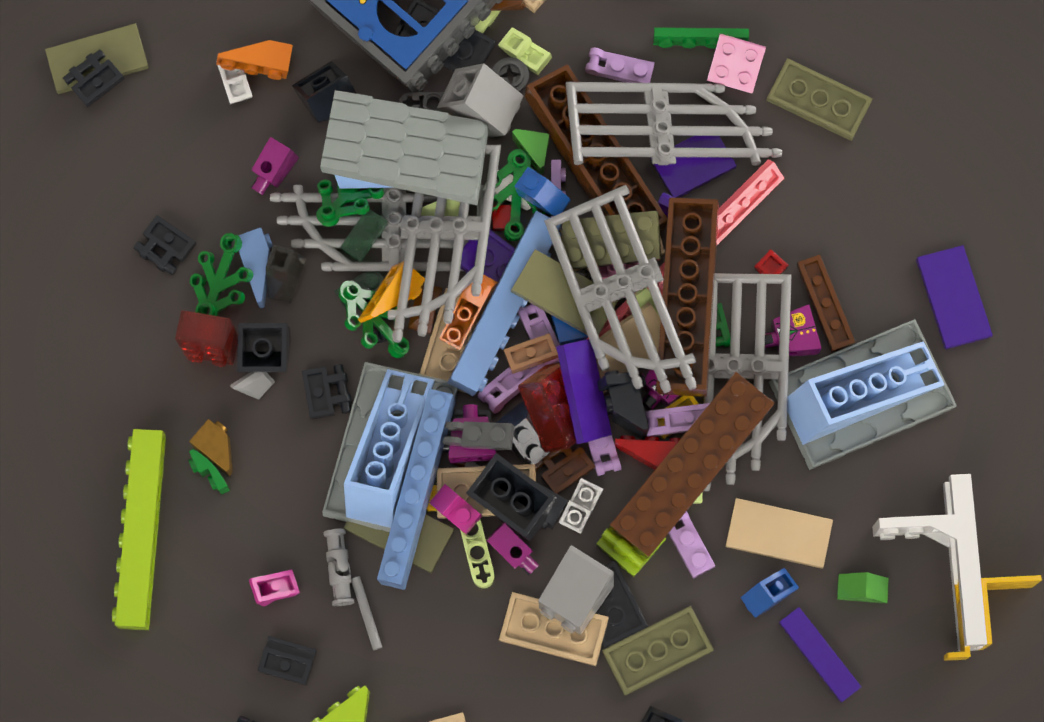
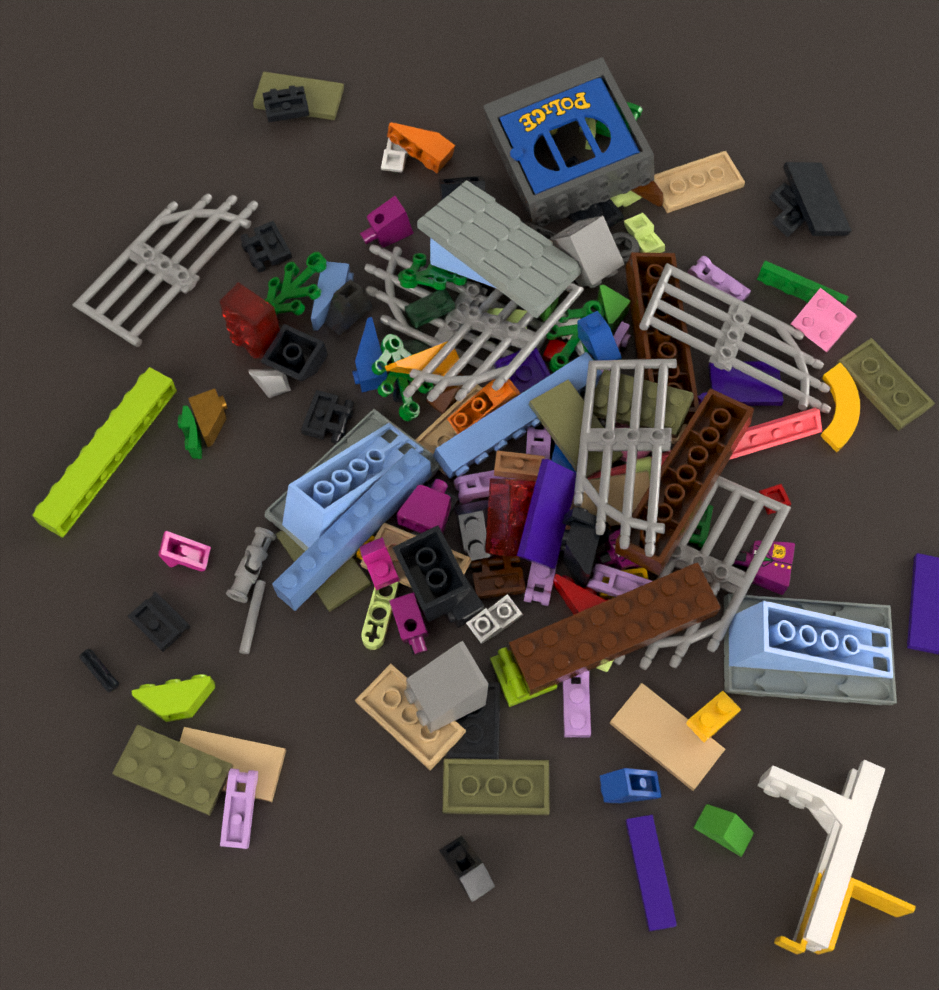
camera: 25 degrees right, 10 degrees down
(75, 317) = (160, 265): none -> light grey piece
(333, 315) = (367, 354): none -> blue slope
(481, 435) = (434, 506): dark grey hinge -> none
(796, 143) = (847, 407): none -> yellow tile
(810, 496) = (713, 716): none -> yellow plate
(825, 303) = (810, 553): reddish brown plate -> none

